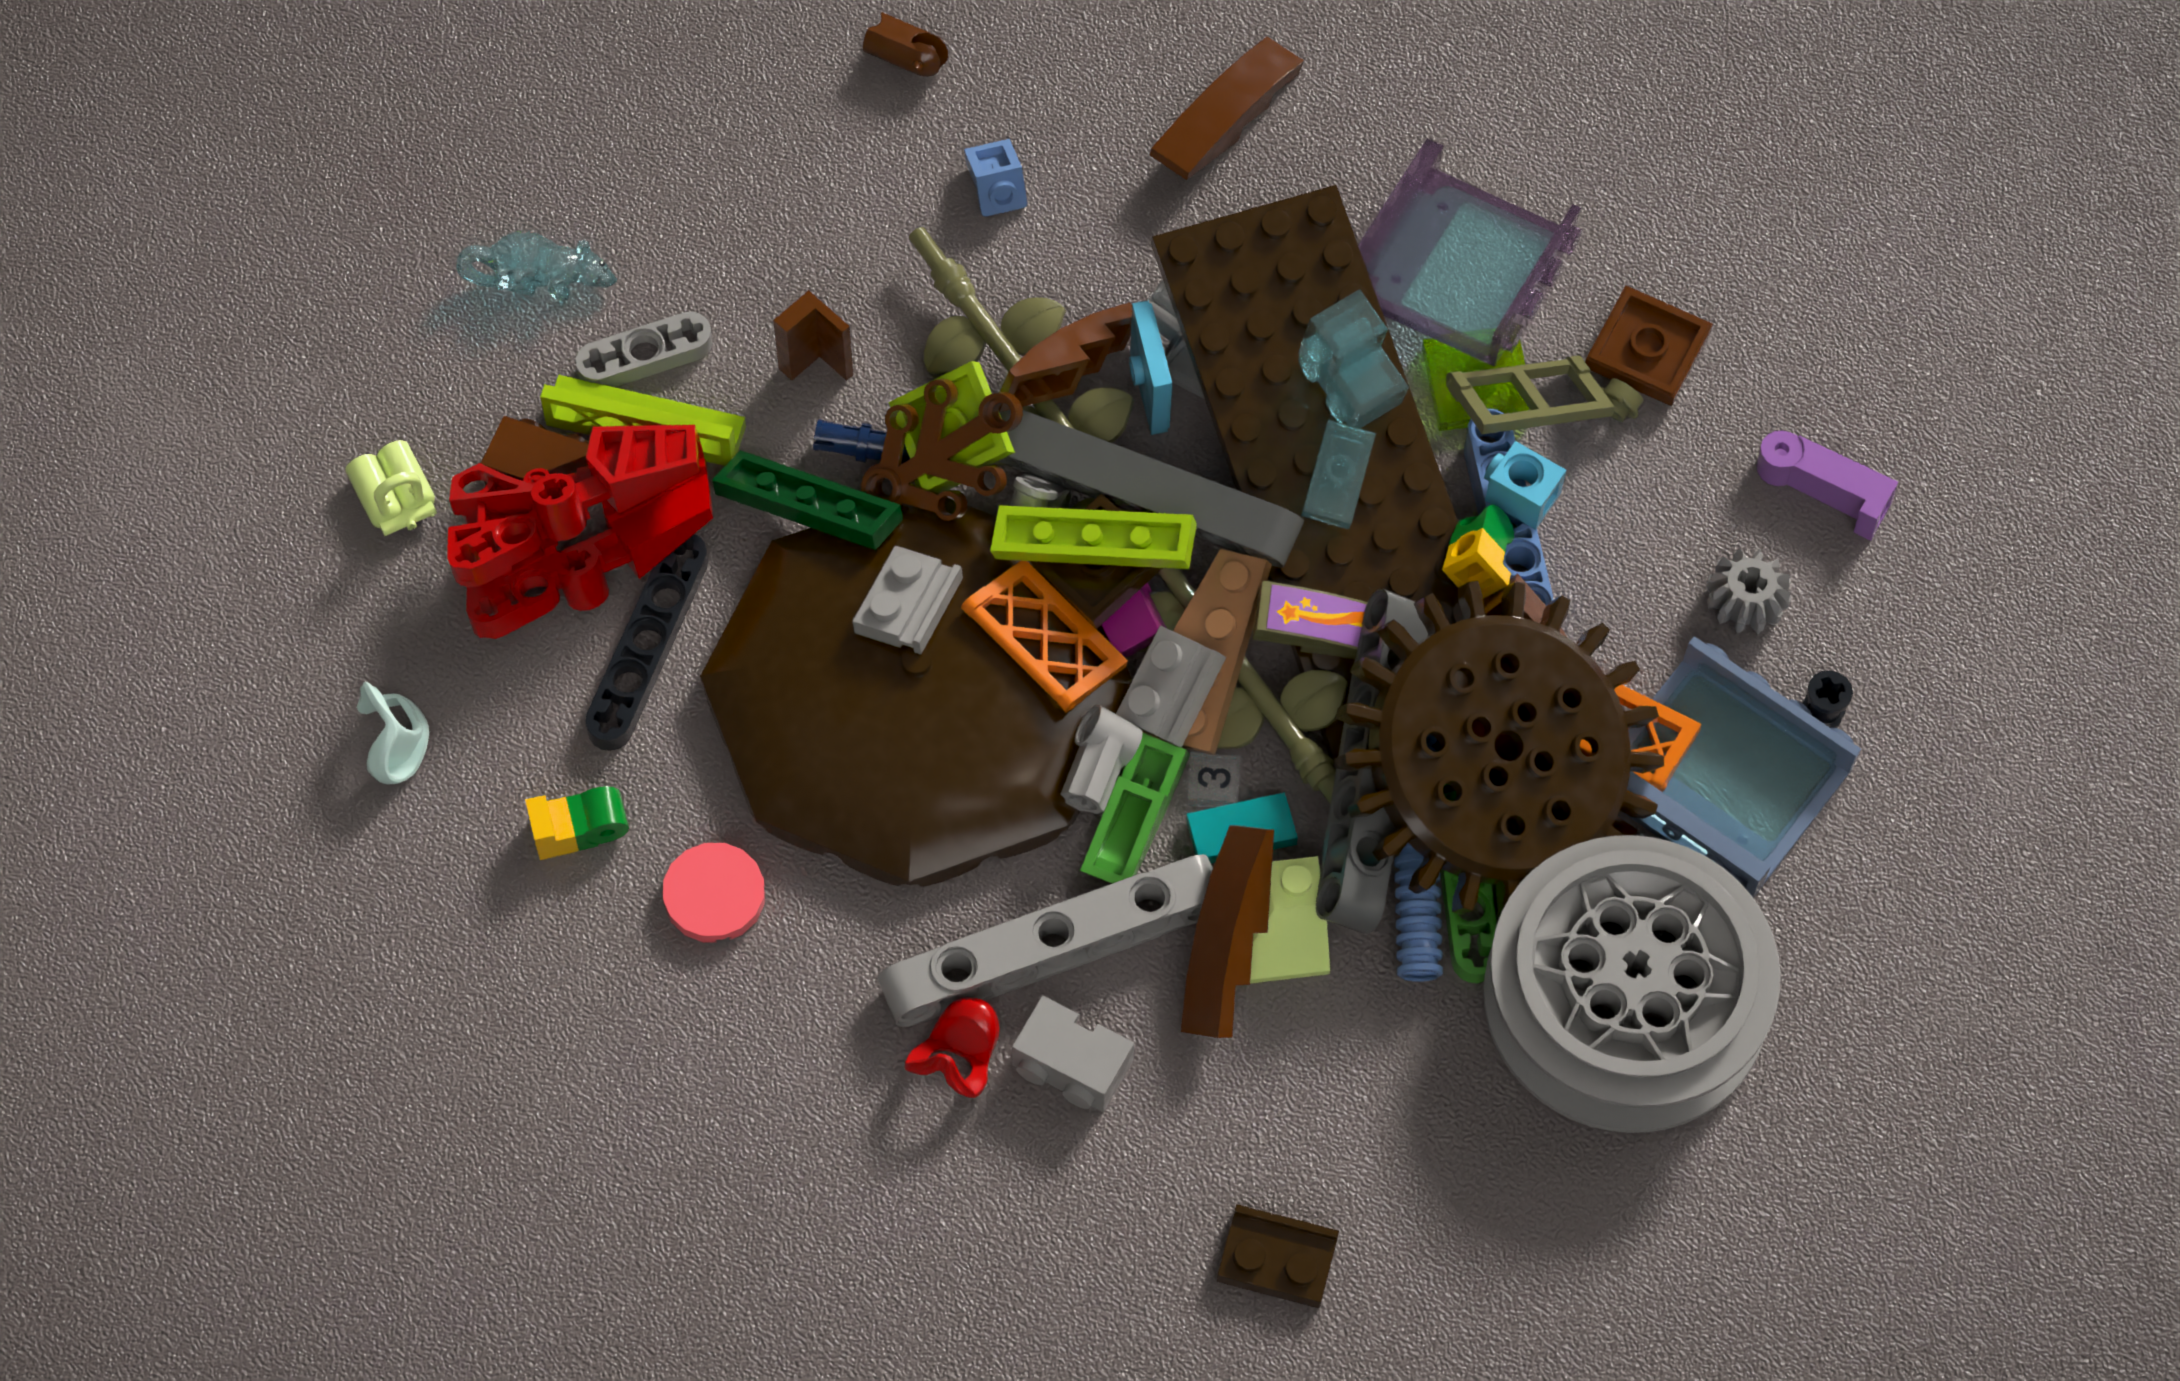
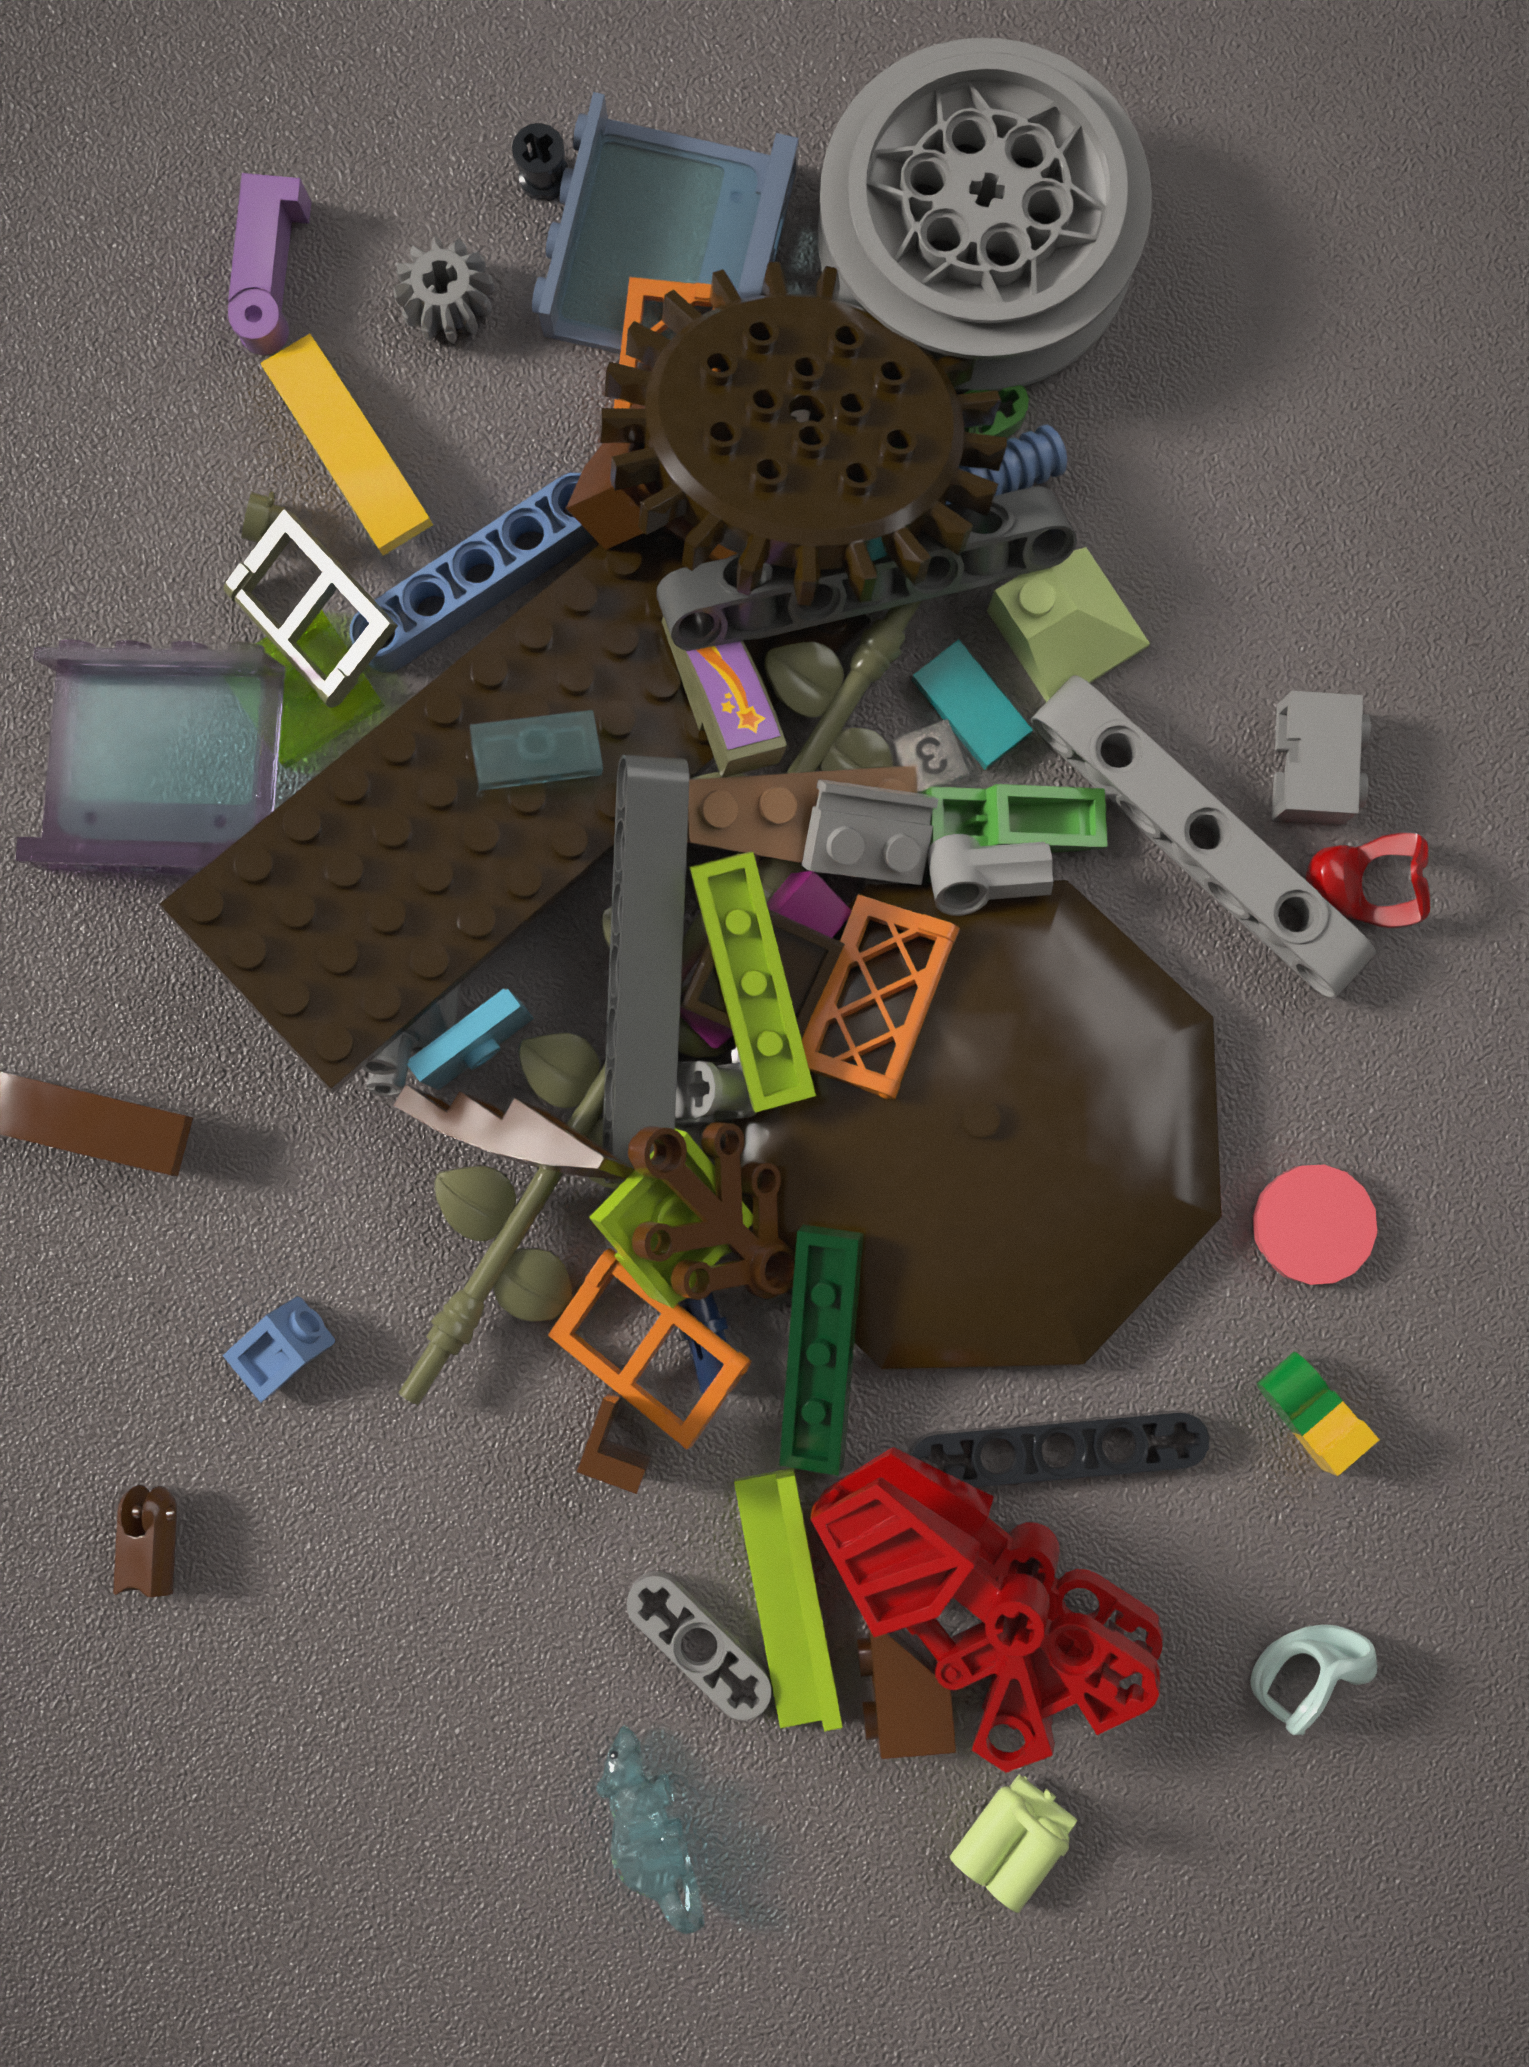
camera: 115 degrees left, 20 degrees up
(856, 376) = (624, 1381): none -> orange window
(907, 599) = (914, 1163): light grey plate -> none
(1223, 938) = (1116, 651): reddish brown slope -> none
(1277, 1256) = (1417, 467): dark brown plate -> none
(1348, 361) = (402, 776): clear light blue brick -> none
(1479, 550) = (554, 562): yellow leg -> none
(1524, 503) = (438, 526): medium azure brick -> none
(1648, 345) = (175, 516): reddish brown plate -> none
(1654, 473) = (346, 444): none -> yellow slope

